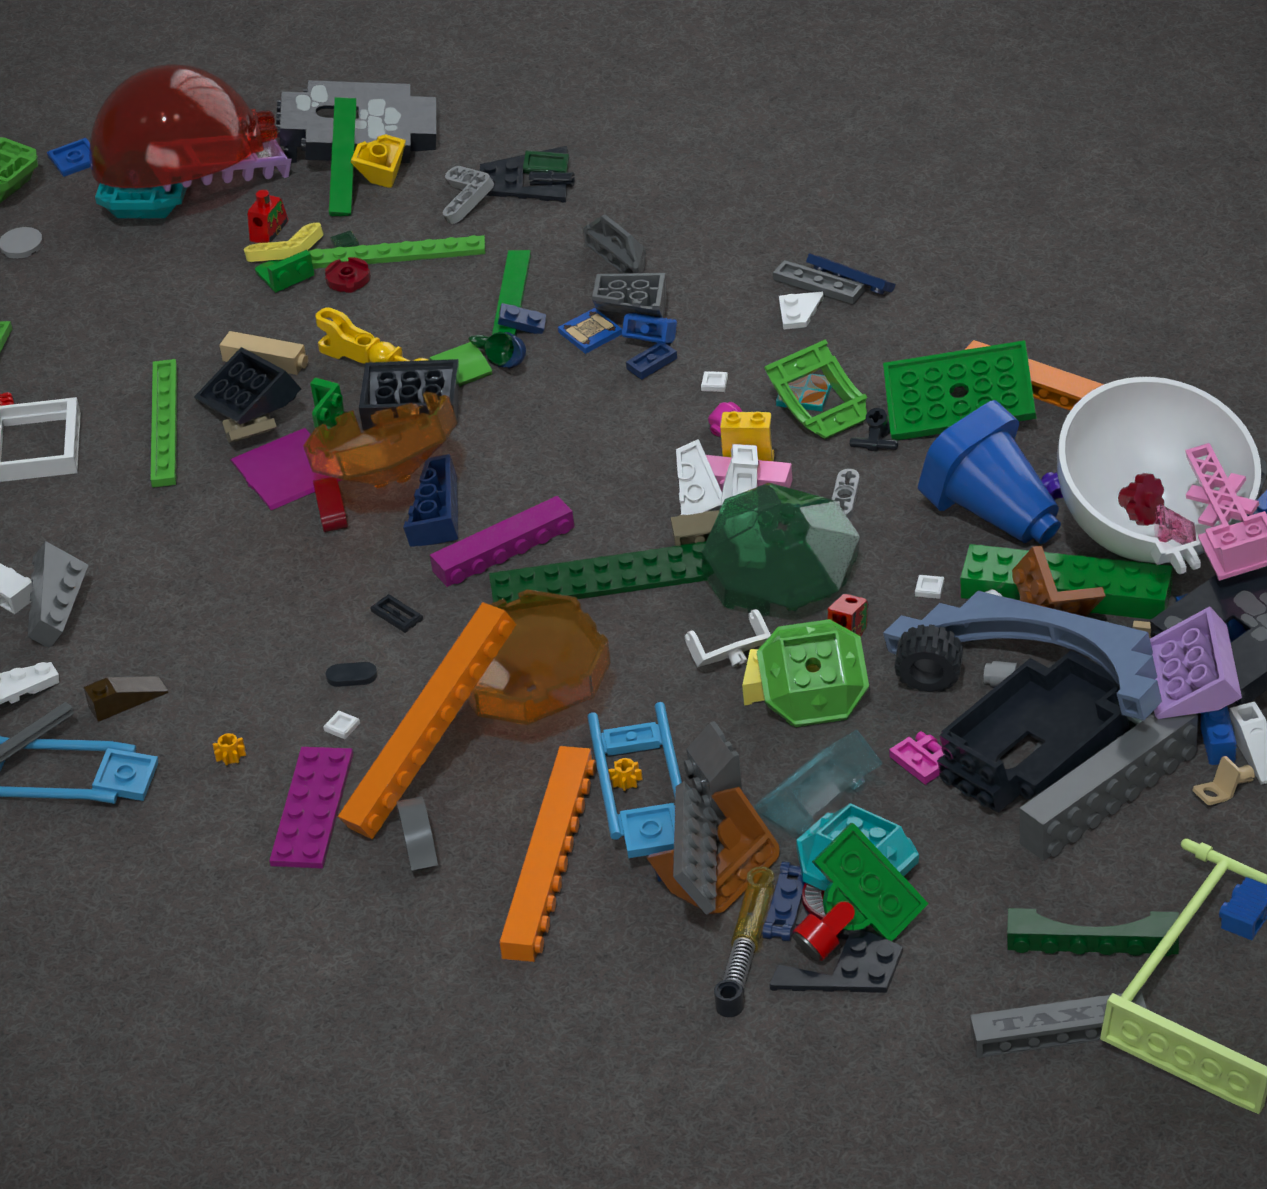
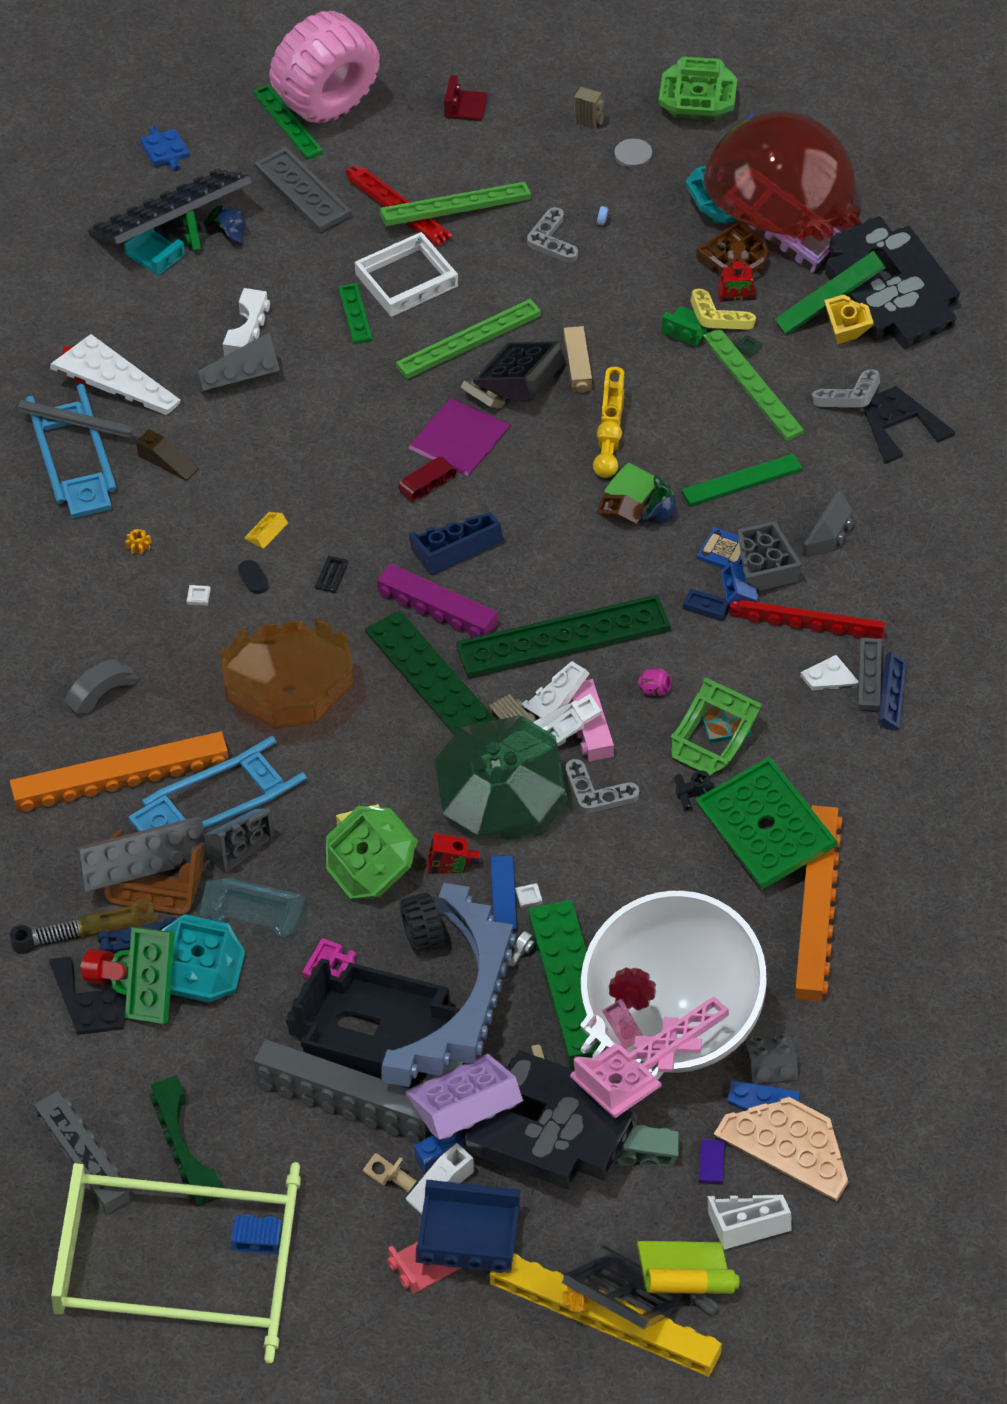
camera: 60 degrees right, 10 degrees up
(49, 496) = (355, 313): none -> green tile
(75, 333) = (546, 239): none -> light grey beam
(86, 283) = (603, 213): none -> light blue tile
(233, 205) = (740, 241): none -> reddish brown connector
(291, 646) = (266, 529): none -> yellow slope
(311, 807) = (108, 615): magenta plate -> none
(327, 402) = (519, 430): green bracket -> none
(347, 275) = (701, 375): dark red plate -> none
(385, 451) = (481, 472): clear orange windscreen -> none
(404, 382) = (570, 469): black slope -> none
(427, 720) = (187, 636): orange brick -> none
(486, 377) = (620, 508): none -> reddish brown slope
(521, 319) = (707, 499): dark blue plate -> none
(545, 161) = (921, 428): dark green tile -> none
(552, 178) = (904, 441): black pin -> none
(615, 469) = (562, 636): none -> dark green plate
(625, 774) = (220, 784): light orange gear -> none
(714, 381) = (705, 656): white tile -> none
(723, 299) = (808, 619): none -> red hinge
(733, 651) = (383, 798): white piece -> none
(747, 429) = (616, 700): yellow panel -> none
(904, 600) = (503, 890): none -> blue tile
(989, 475) = (654, 862): blue cone -> none
(997, 671) = (445, 976): light grey brick -> none
(1038, 587) = (519, 965): dark orange bracket -> none

